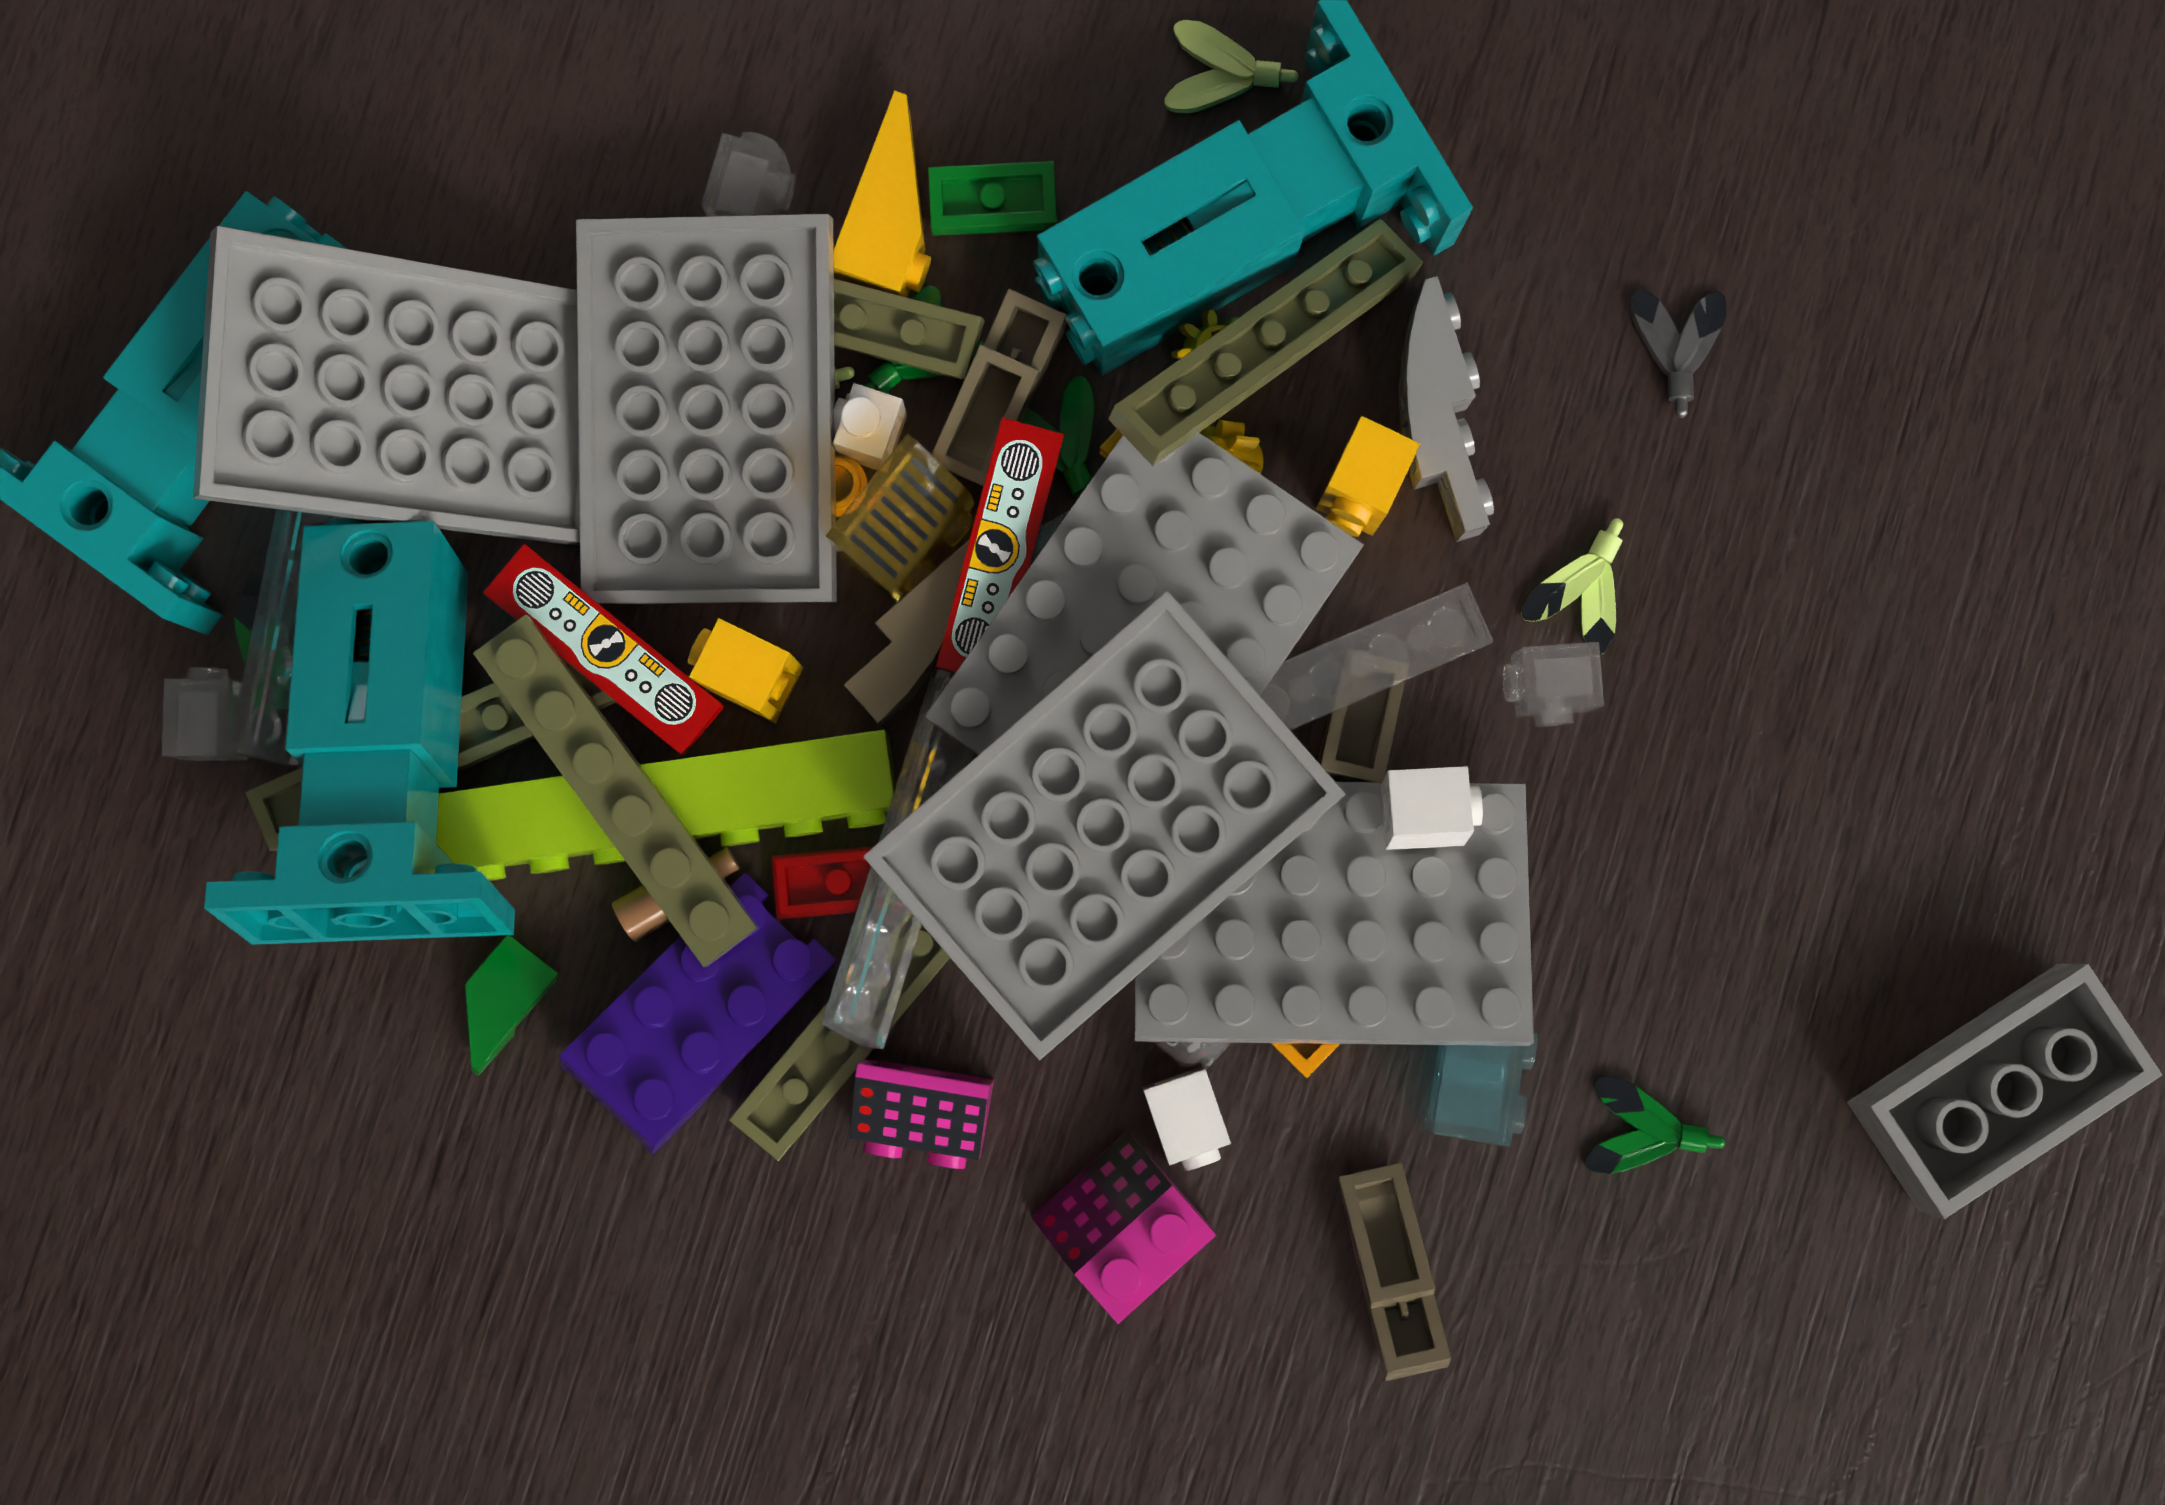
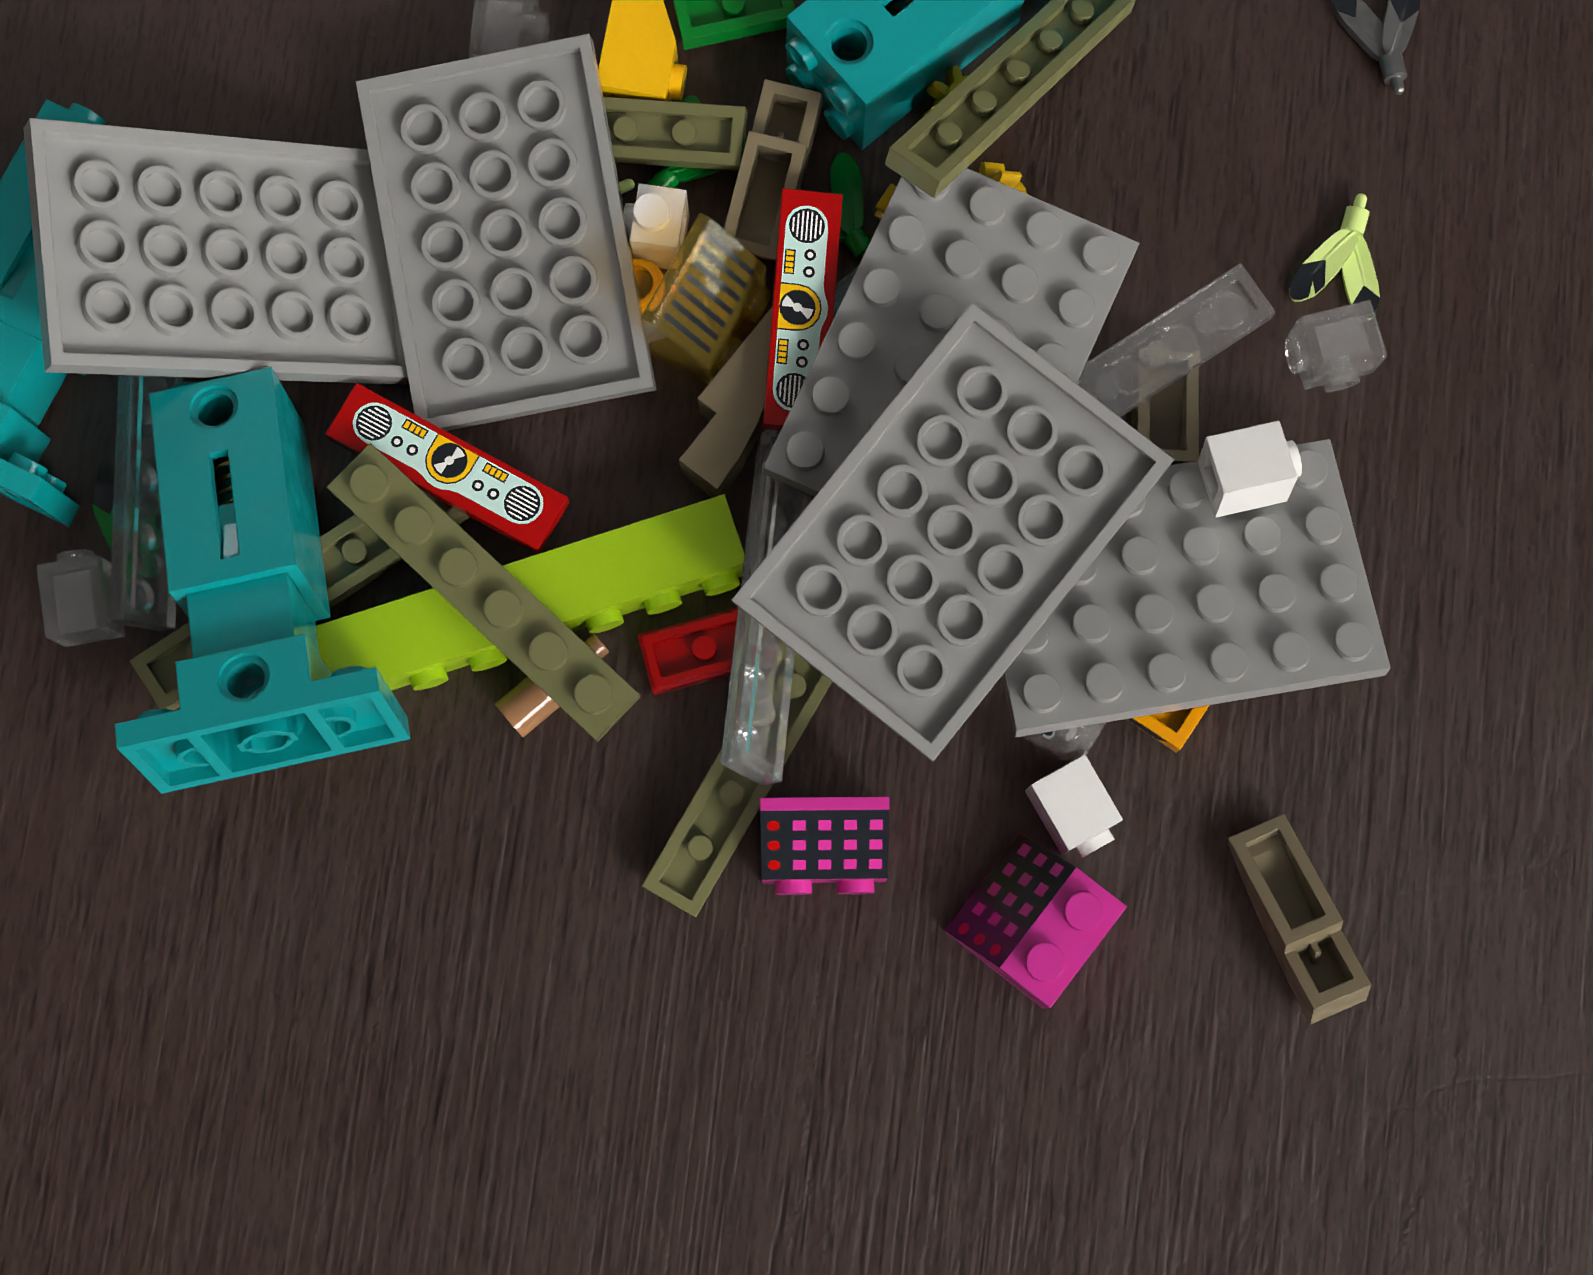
camera: 10 degrees left, 5 degrees down
(501, 997) = (404, 812): green slope -> none
(690, 1024) = (589, 802): dark purple piece -> none
(744, 669) = (584, 460): yellow brick -> none
(1367, 478) = (1130, 182): yellow brick -> none
(1432, 388) = (1169, 107): light grey slope -> none
(1478, 1092) = (1342, 732): clear light blue brick -> none
(1656, 1135) = (1514, 742): green piece -> none

